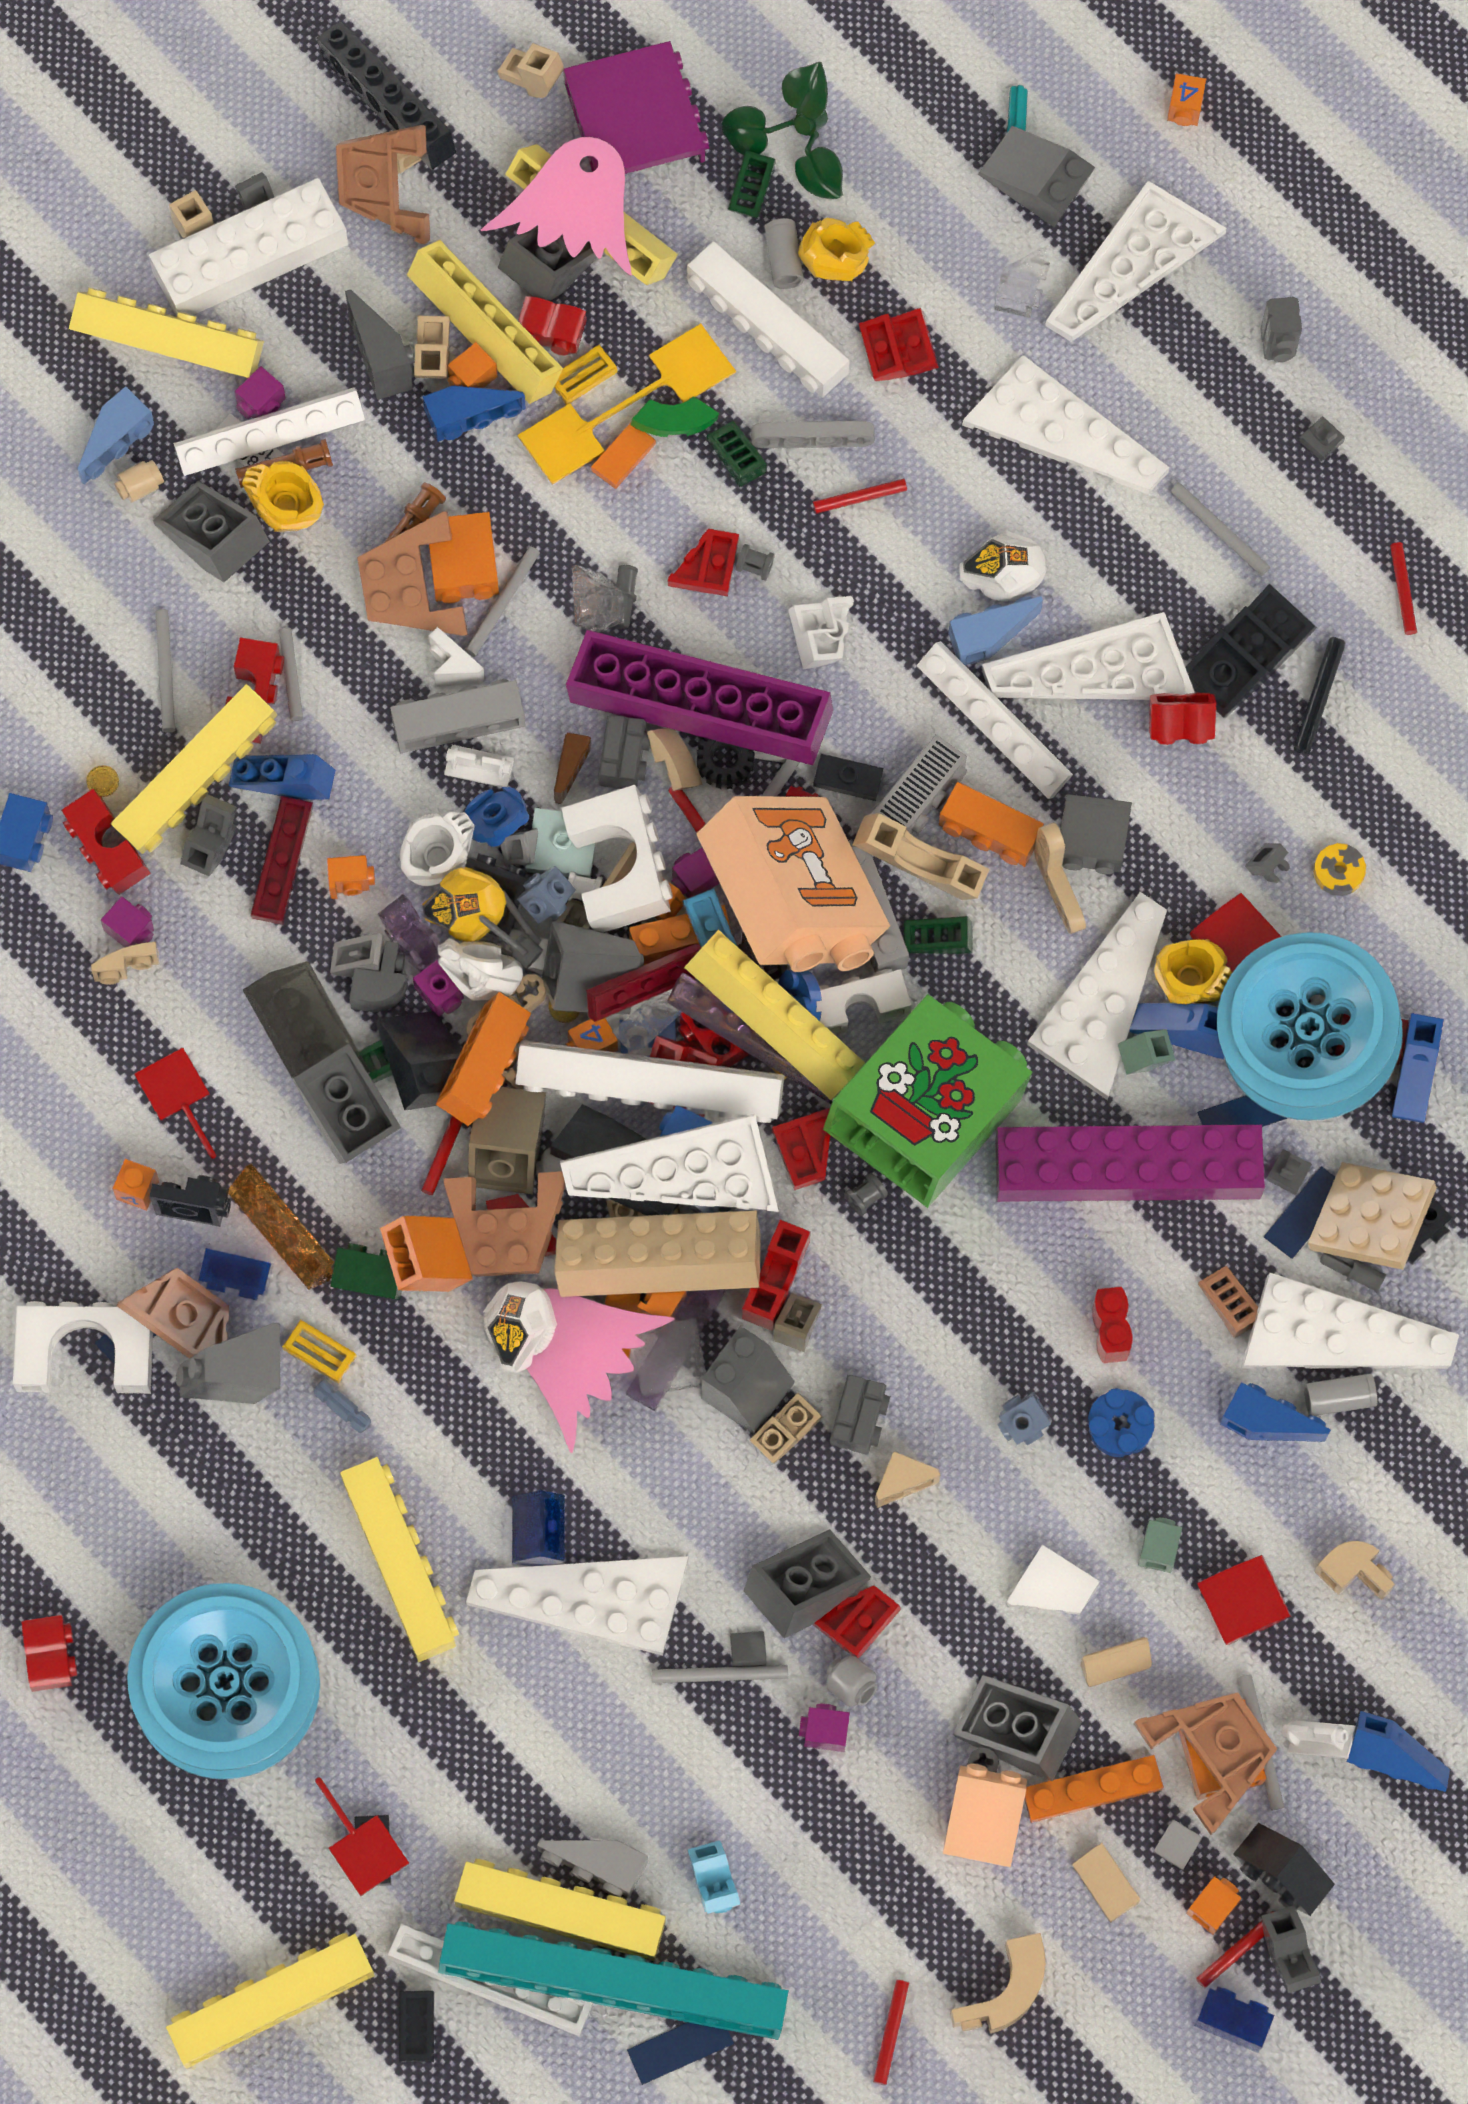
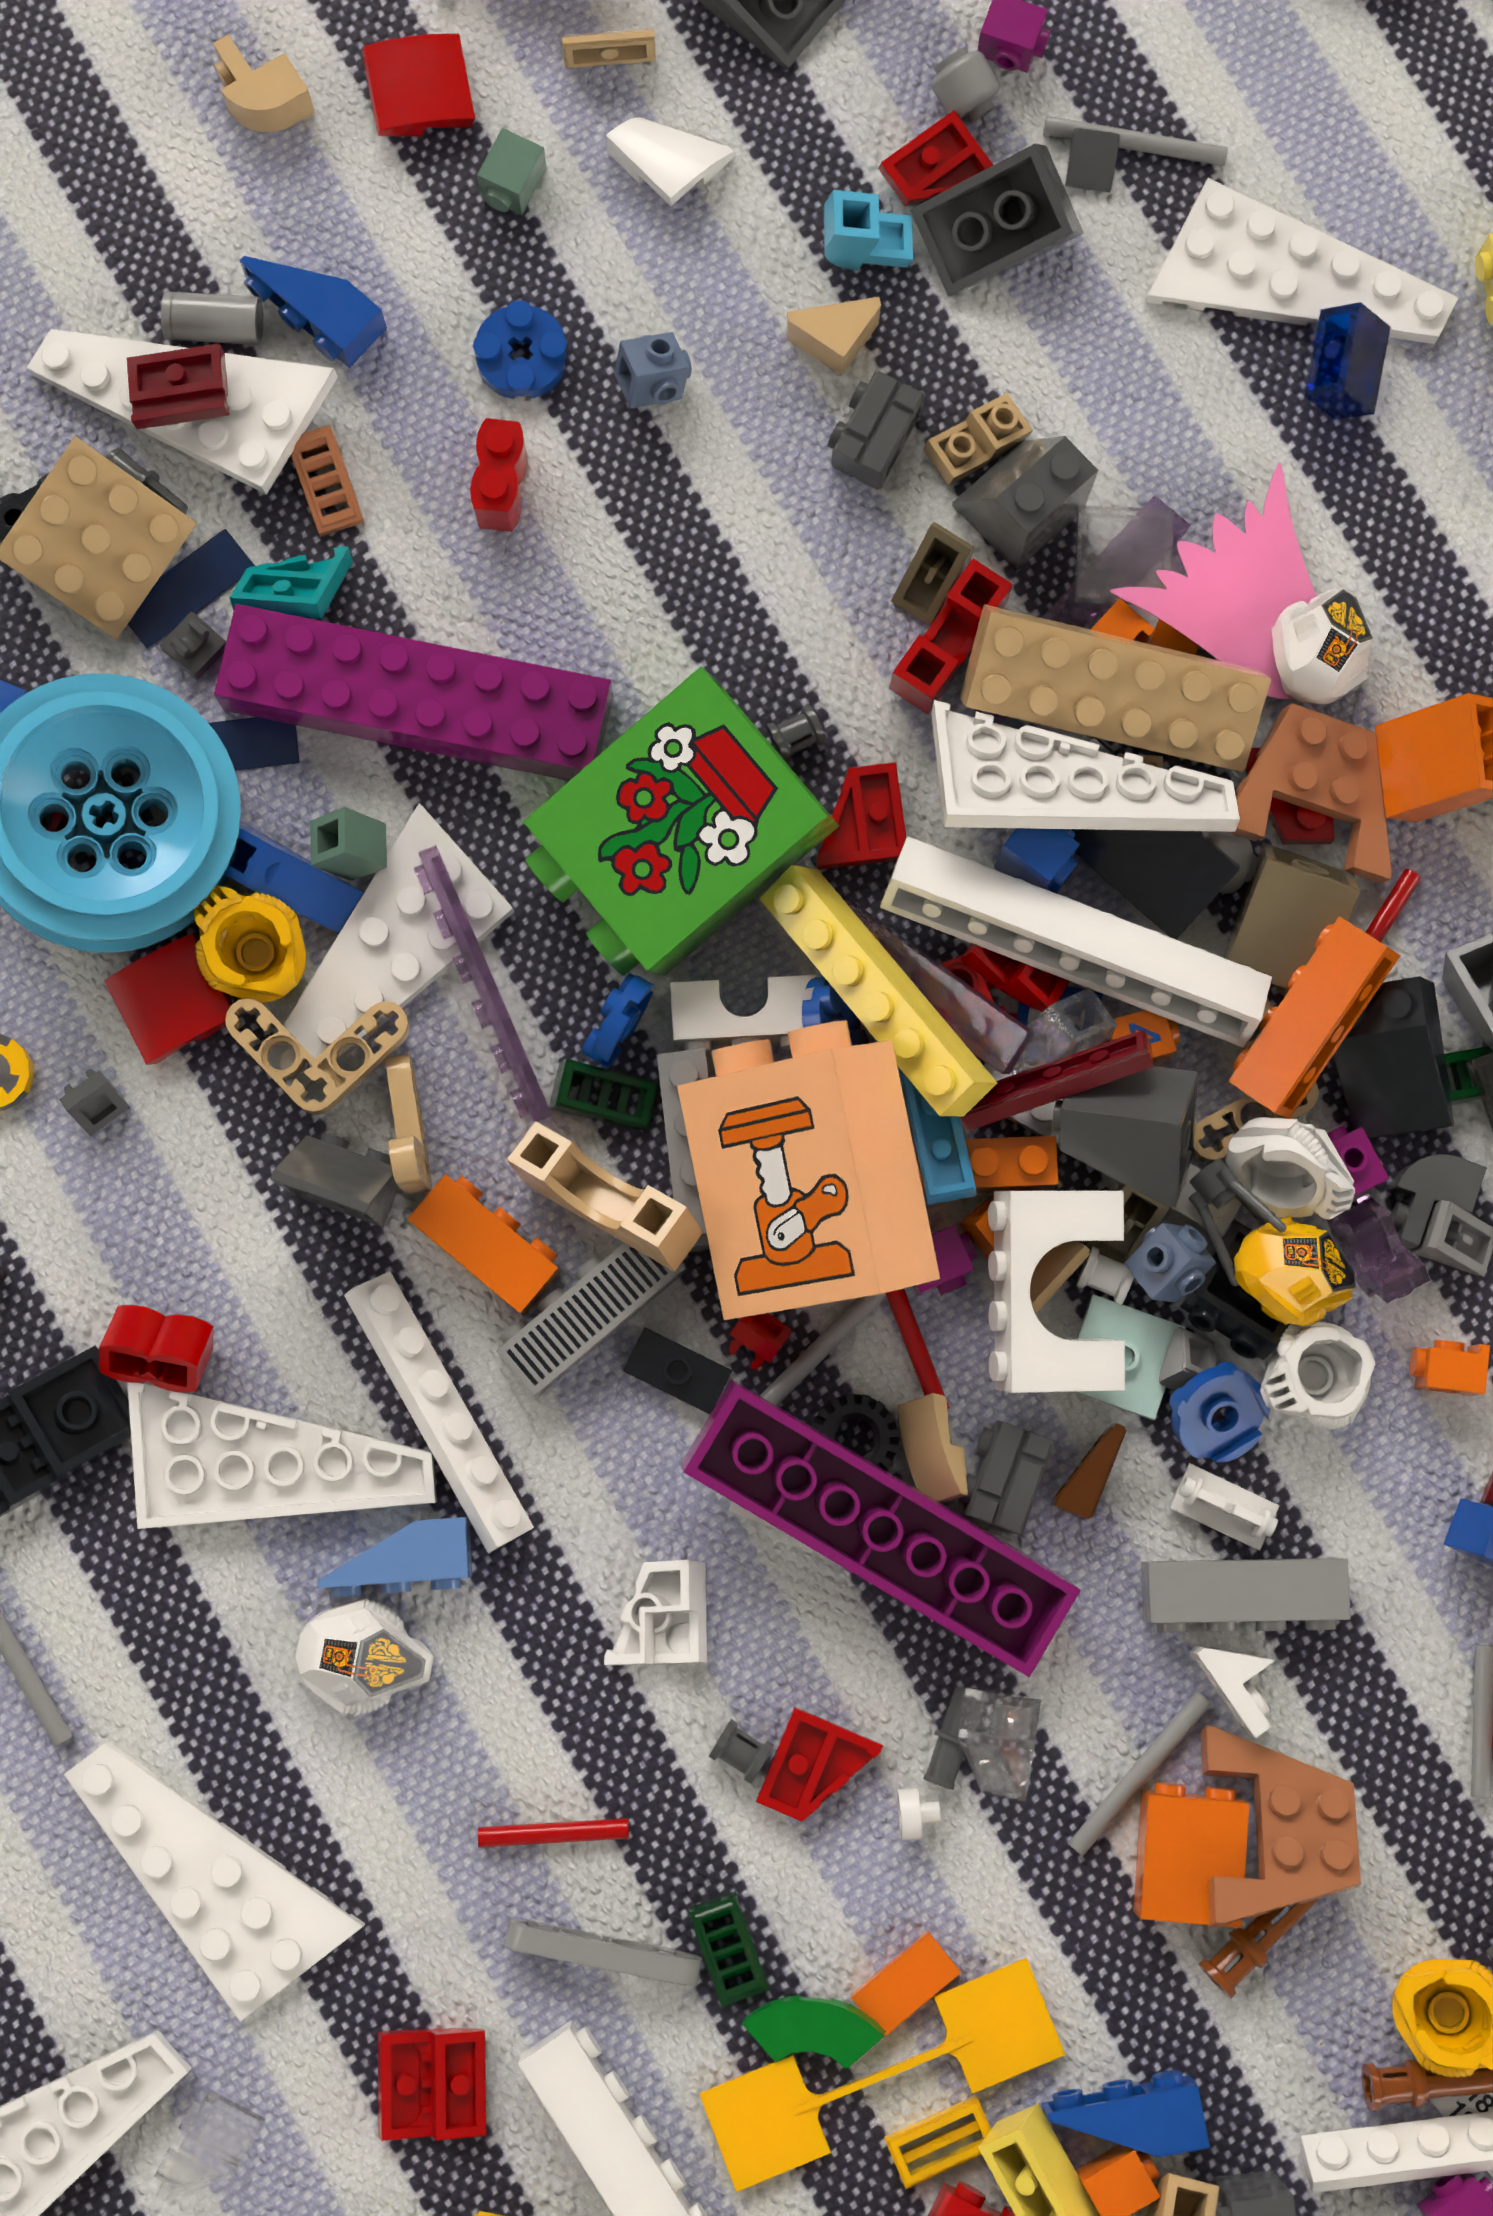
camera: 170 degrees left, 10 degrees up
(639, 547) = (913, 1813): none -> white tile
(903, 1548) = (861, 234): none -> medium azure brick
(940, 971) = (622, 1015): none -> blue plate
(1041, 987) = (473, 967): none -> clear purple plate
(1125, 906) = (326, 1065): none -> tan beam
(1231, 1219) = (293, 585): none -> teal wing
(1344, 1323) = (178, 386): none -> dark red plate

